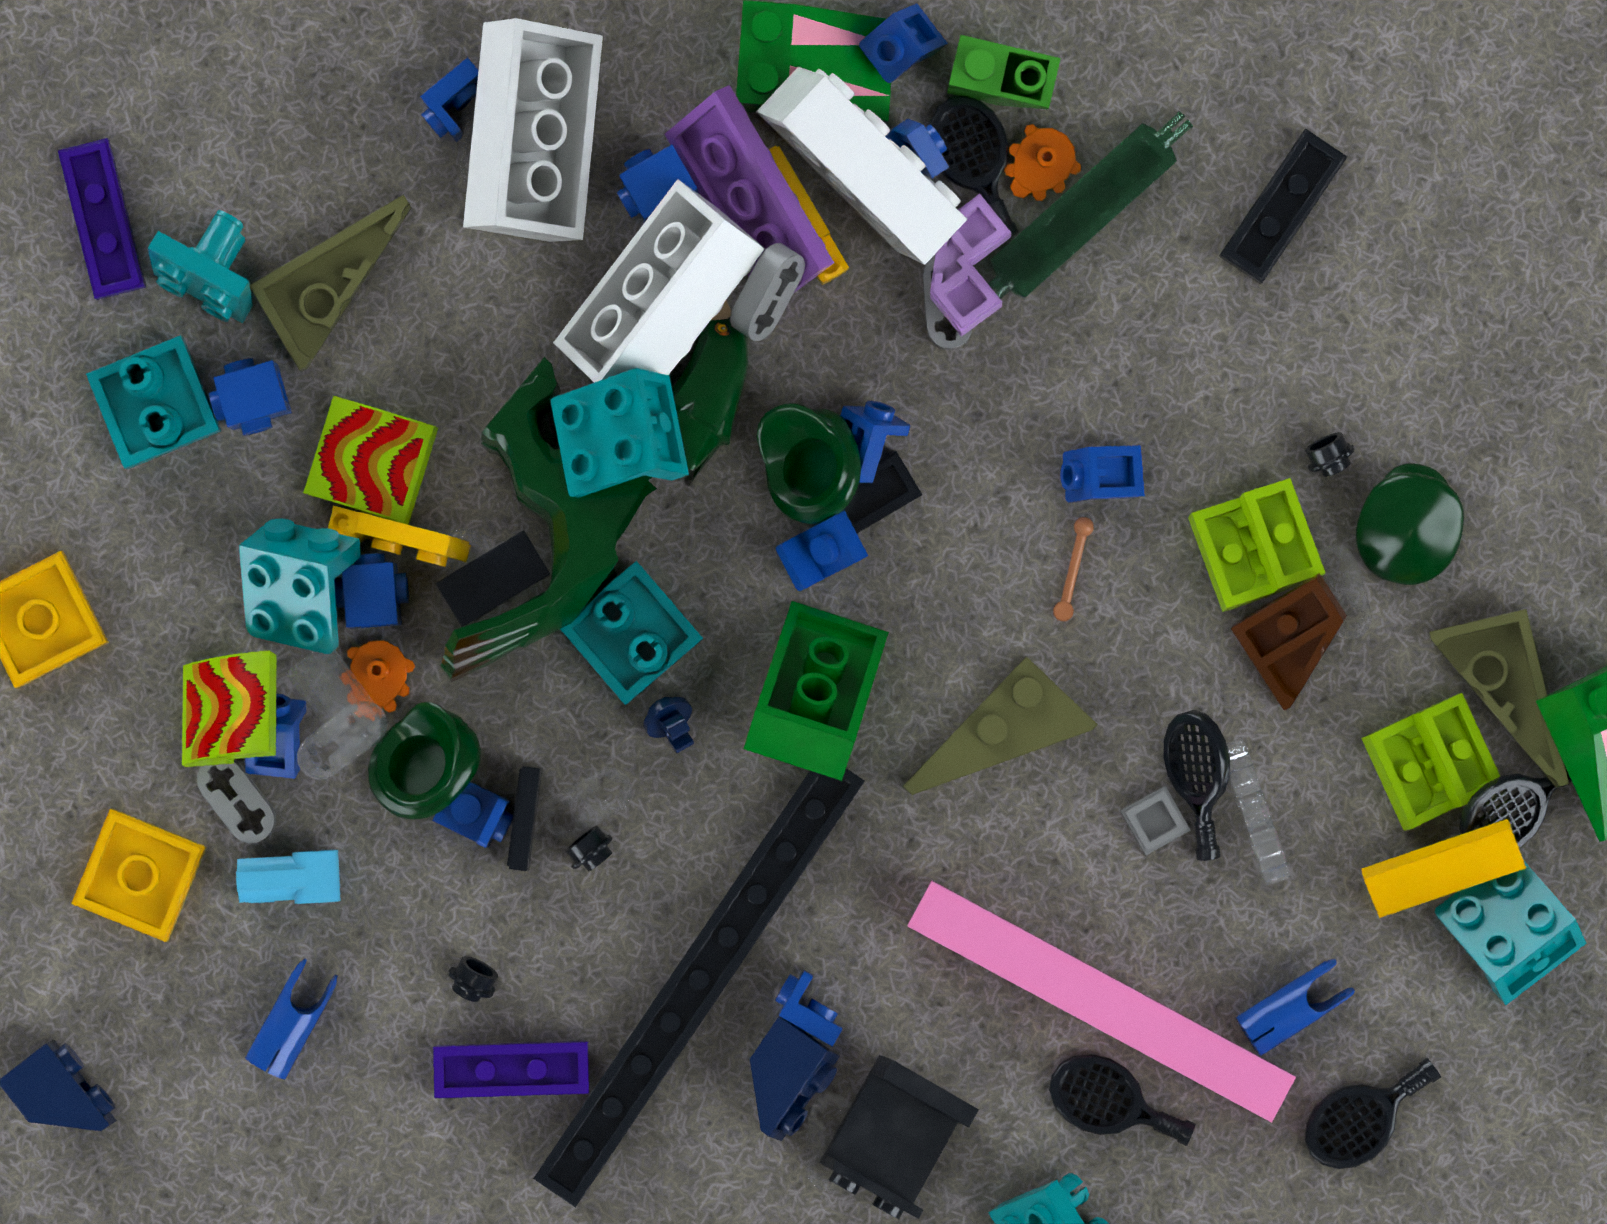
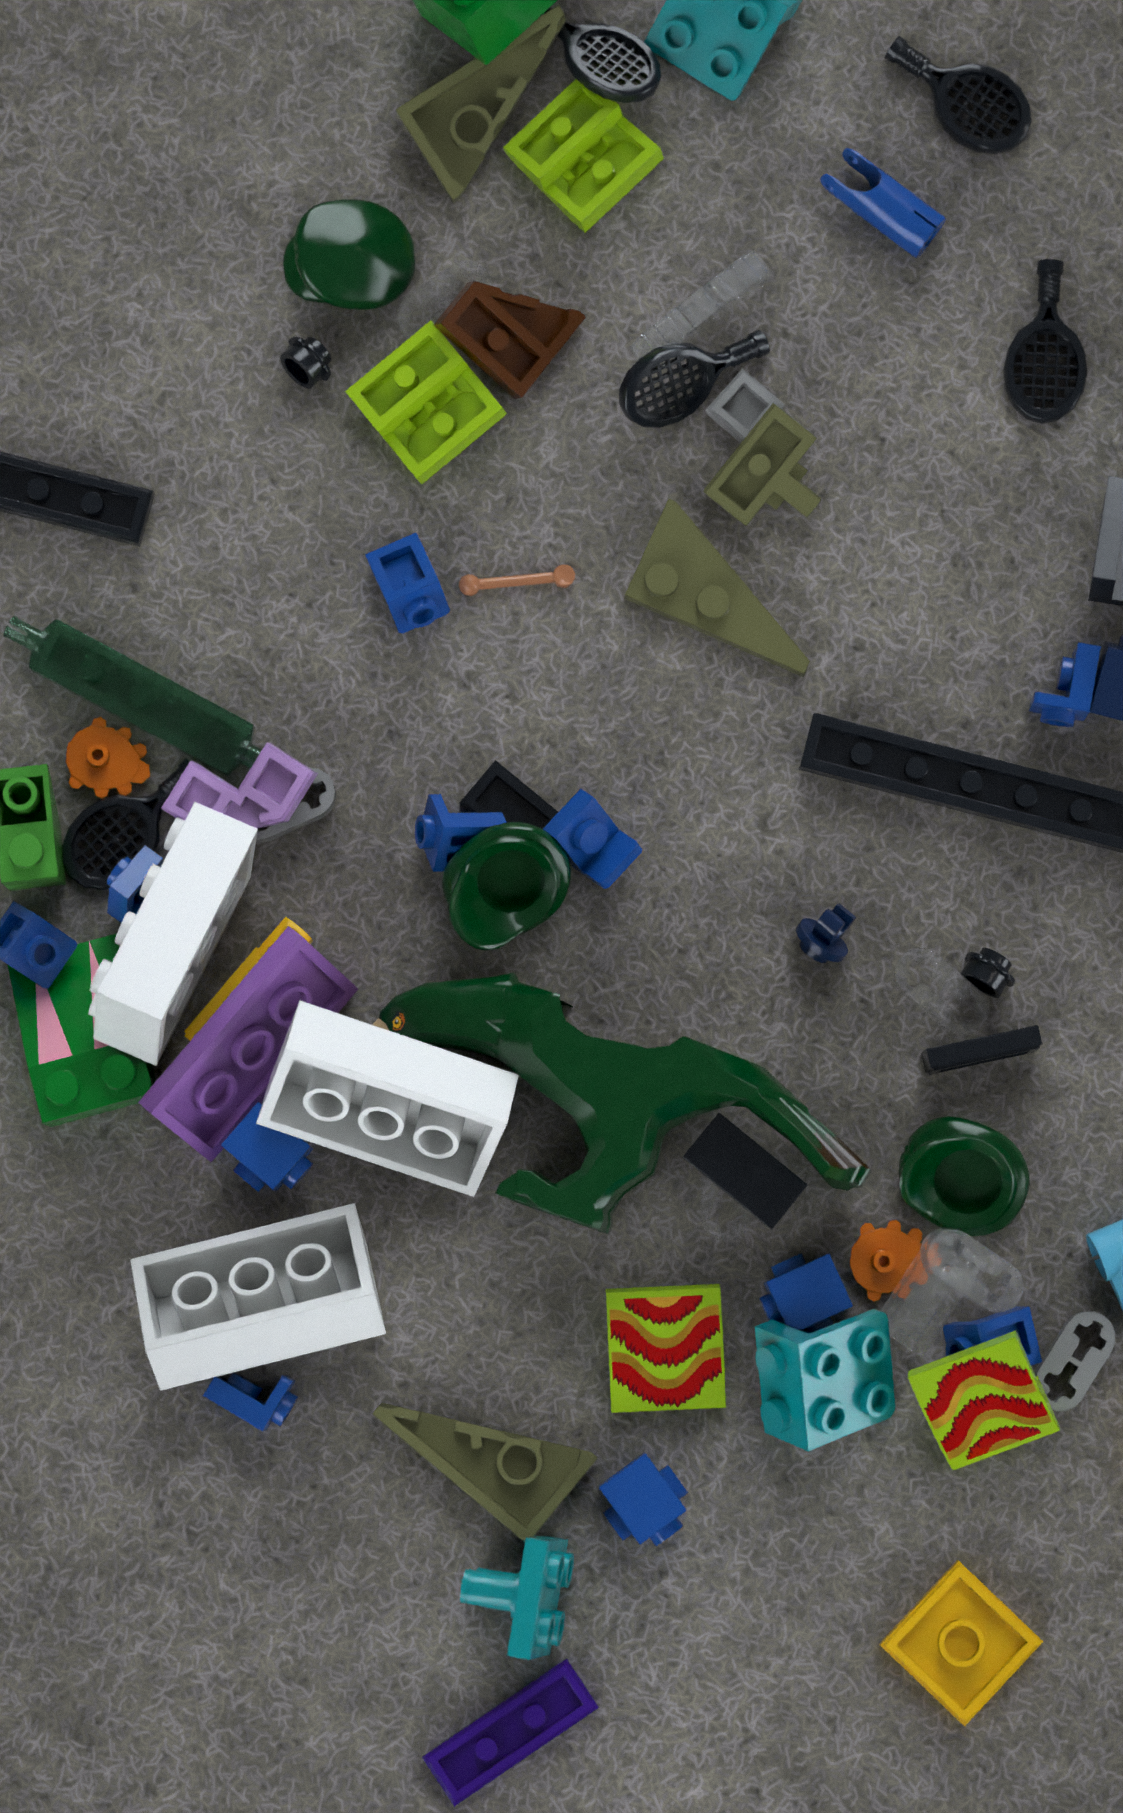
camera: 105 degrees left, 5 degrees down
(153, 402) = (687, 1602): teal plate -> none
(393, 535) = (738, 1294): yellow hinge -> none
(477, 815) = (996, 1098): blue bracket -> none
(619, 432) = (549, 1083): teal bracket -> none
(632, 633) = (749, 1005): teal plate -> none
(767, 292) = (343, 984): light grey beam -> none
(816, 690) = (740, 792): green slope -> none
(1092, 817) = (766, 469): none -> olive hinge
(1101, 1001) = (950, 396): bright pink tile -> none
(1443, 868) = (688, 101): yellow tile -> none

